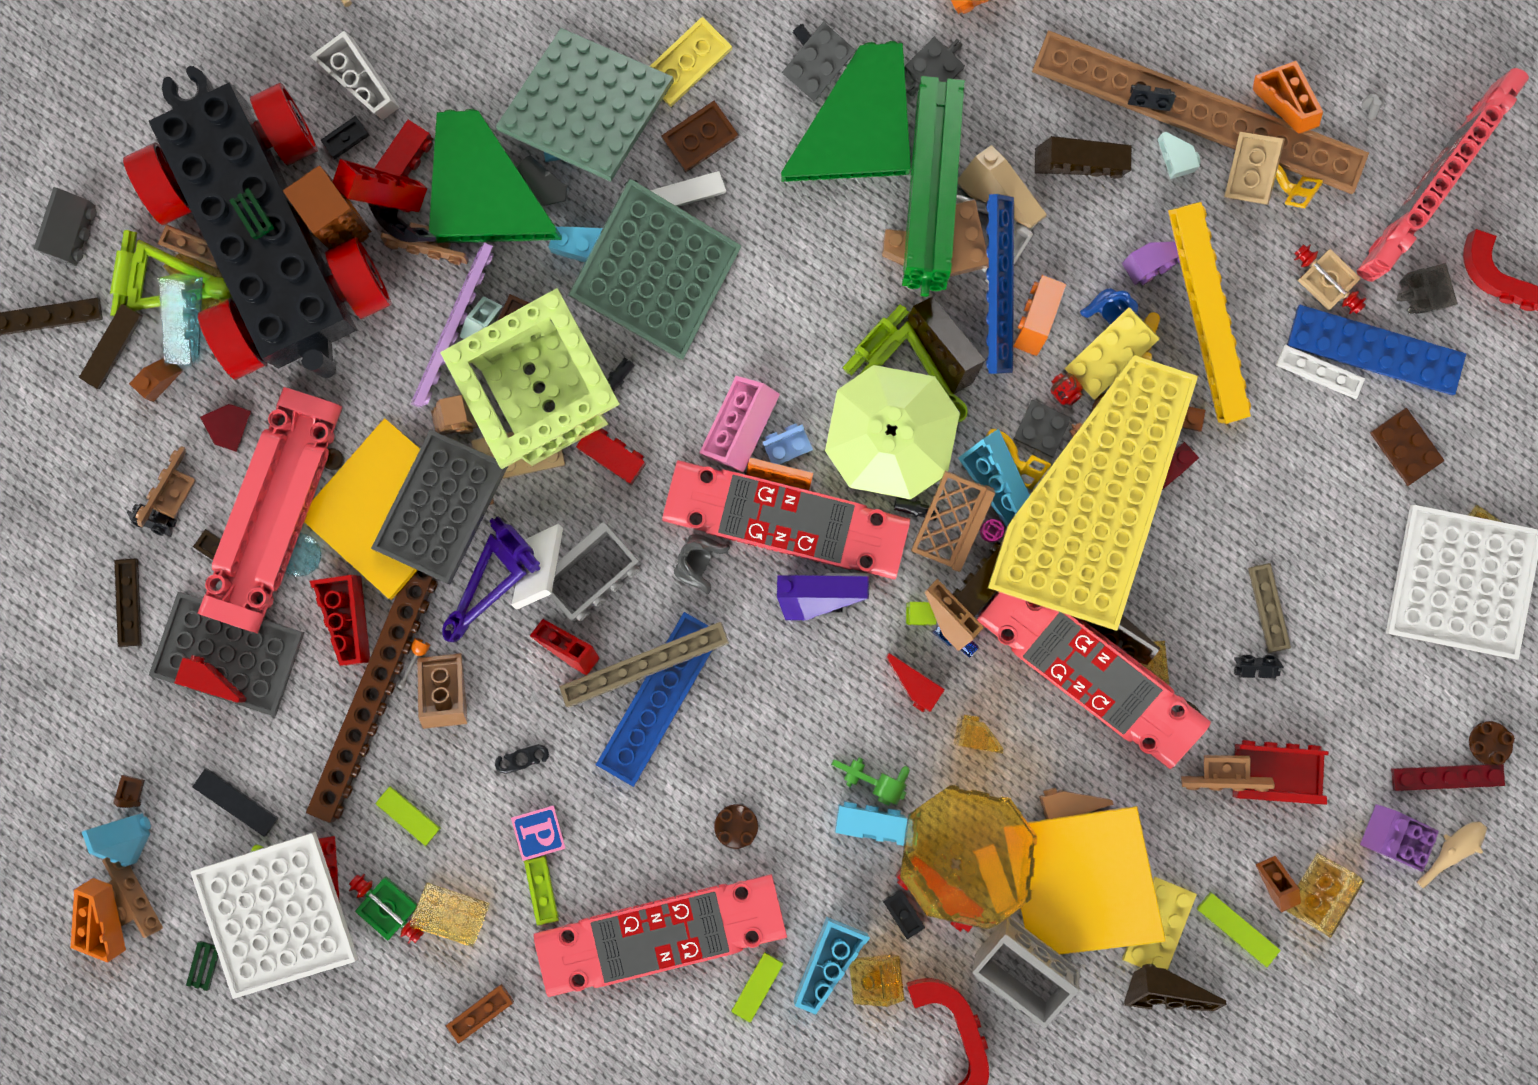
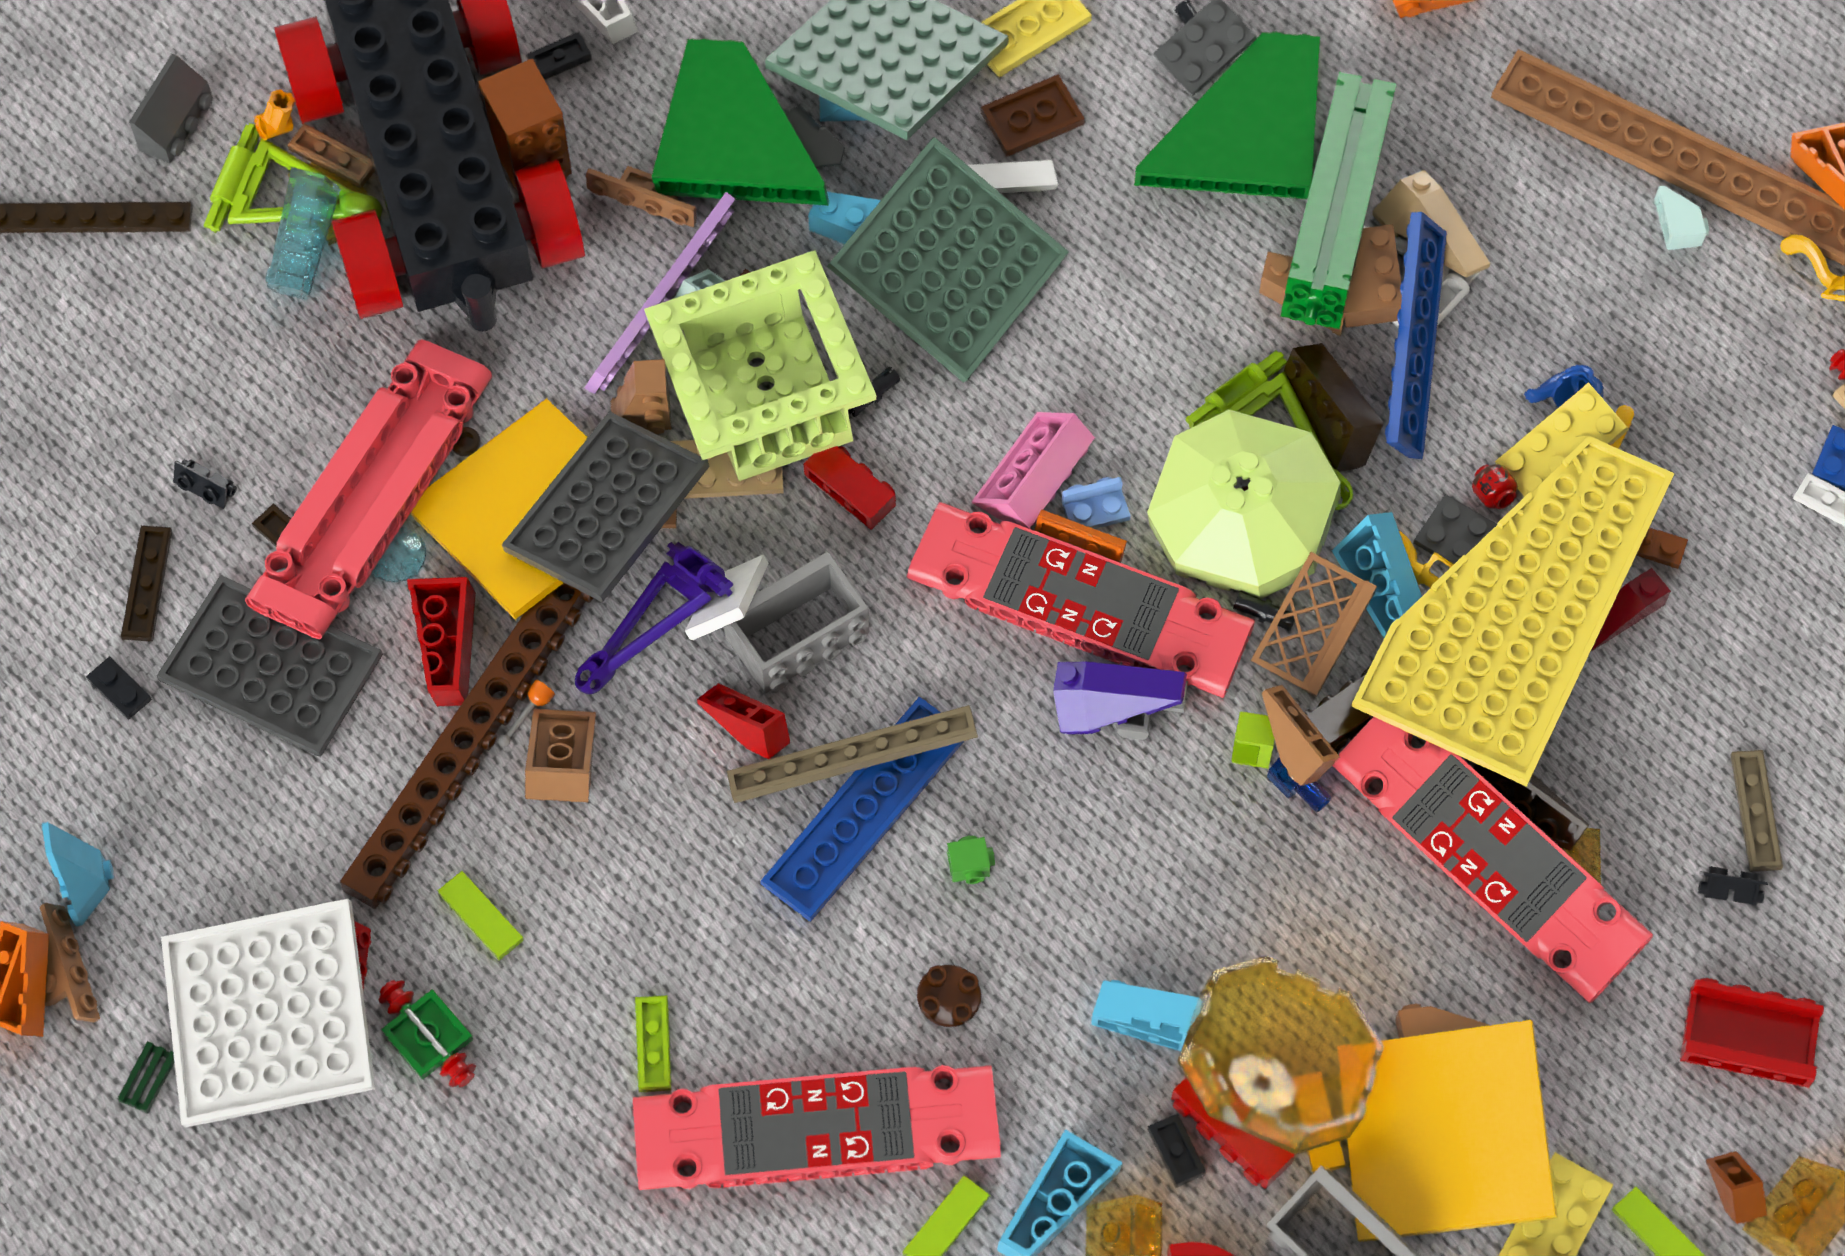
camera: 10 degrees right, 20 degrees down
(110, 346) = (196, 261): dark brown tile -> none
(124, 685) = (118, 688): none -> black plate
(128, 792) = (95, 826): reddish brown tile -> none
(142, 225) = (277, 117): none -> light orange piece
(155, 379) = (246, 308): dark orange slope -> none
(170, 491) = (238, 446): medium nougat bracket -> none
(206, 678) = (233, 683): red slope -> none
(226, 425) = (329, 379): dark red slope -> none
(235, 802) = (240, 863): black tile -> none
(242, 199) = (426, 81): dark green tile -> none
(378, 187) = (601, 109): red wedge -> none
(396, 227) = (599, 154): black slope -> none
(406, 150) = (632, 86): red brick -> none
(449, 914) = (516, 1052): clear yellow plate -> none
(479, 1013) = (534, 1199): dark orange plate -> none
(514, 766) = (644, 871): black piece -> none
(538, 833) = (663, 961): piece -> none
(695, 558) = (943, 632): dark grey hair -> none
(736, 727) = (970, 859): none -> bright green brick
(886, 788) = (1175, 971): bright green piece -> none
(917, 686) = (1239, 843): red slope -> none
(934, 61) = (1362, 61): dark grey plate -> none
(975, 735) = (1314, 913): clear yellow slope -> none
(989, 528) = (1361, 654): dark pink wheel -> none
(1039, 314) = (1465, 388): wedge -> none
(1082, 157) = (1547, 203): dark brown wedge -> none
(1149, 259) = (1638, 331): medium lavender slope -> none
(1158, 99) = (1648, 144): black hinge -> none
(1210, 312) = (1701, 407): yellow brick -> none
(1227, 772) = (1672, 1014): medium nougat bracket -> none
(1254, 168) = (1781, 244): tan plate -> none

